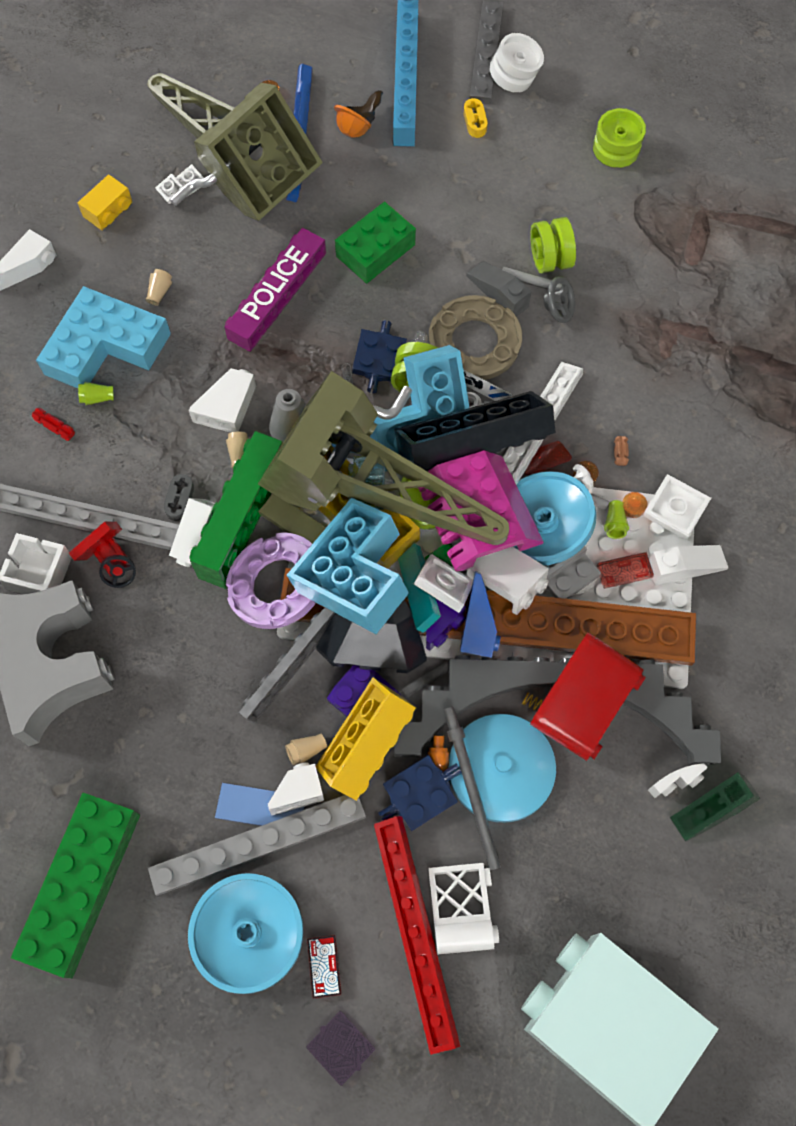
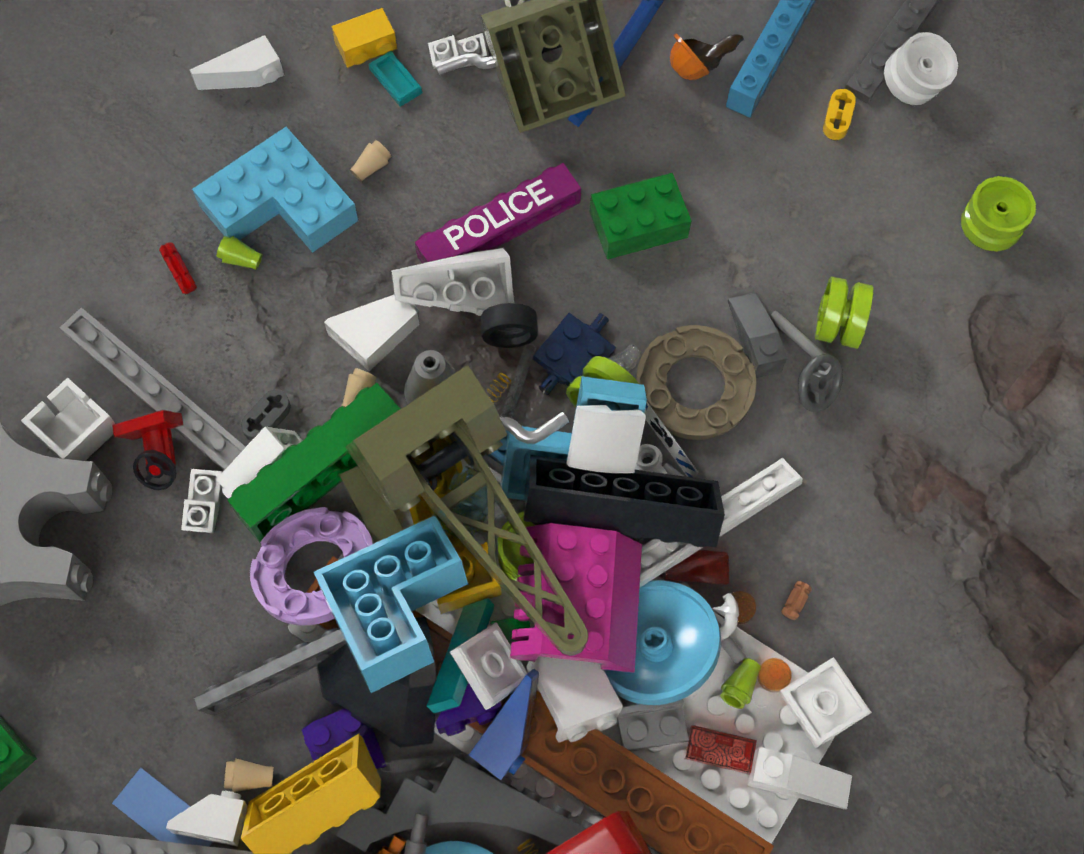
camera: 25 degrees right, 0 degrees up
(143, 222) = (395, 78): none -> teal tile
(164, 577) = (203, 501): none -> white slope
(274, 341) = (458, 282): none -> white wedge
(324, 354) = (509, 325): none -> black tyre
(444, 392) = (605, 439): none -> white slope

